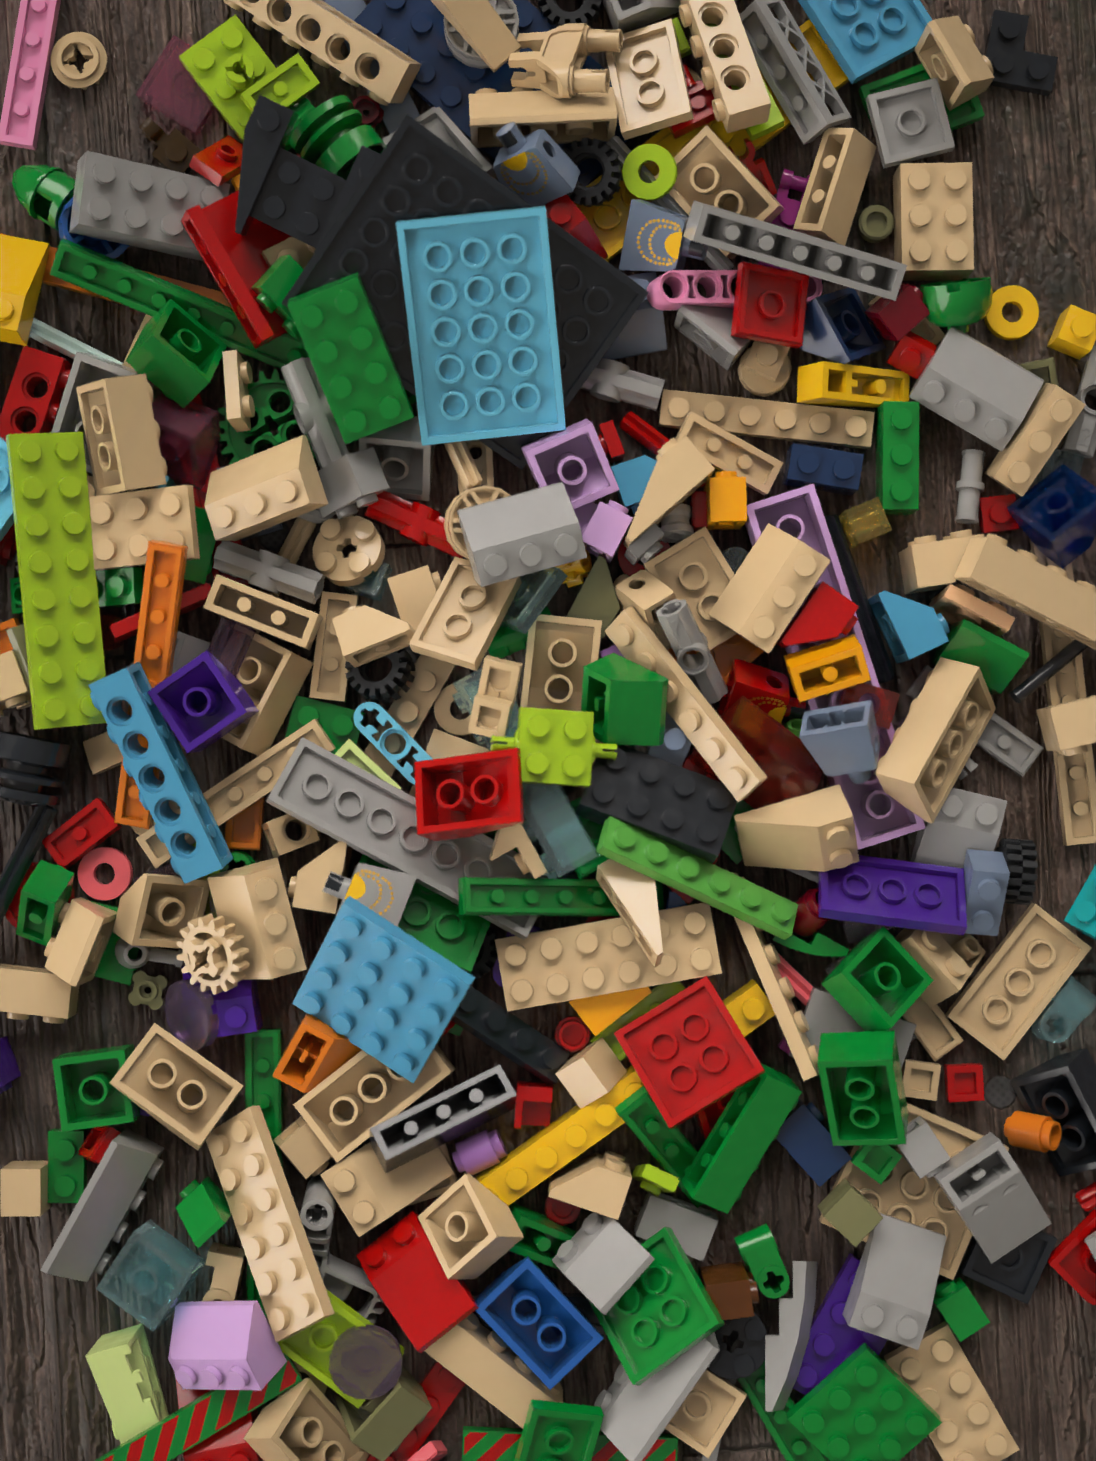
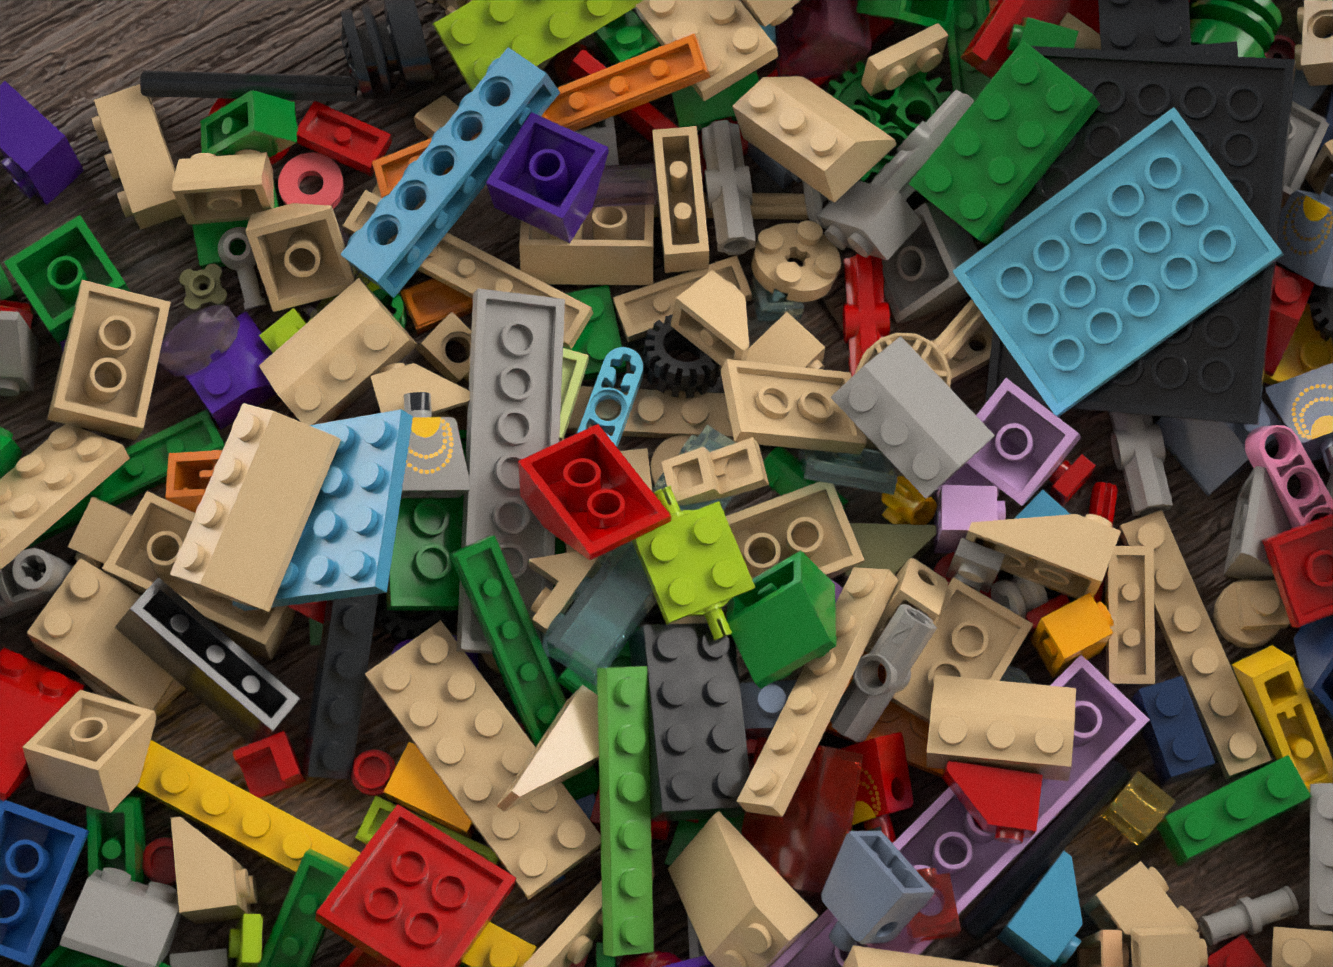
camera: 65 degrees right, 15 degrees down
(212, 957) = (274, 324): tan gear -> none
(357, 1038) = (255, 507): none -> tan slope
(479, 1152) = (186, 731): medium lavender brick -> none
(591, 1072) = (339, 808): tan piece -> none
(827, 667) = (945, 831): light orange brick -> none

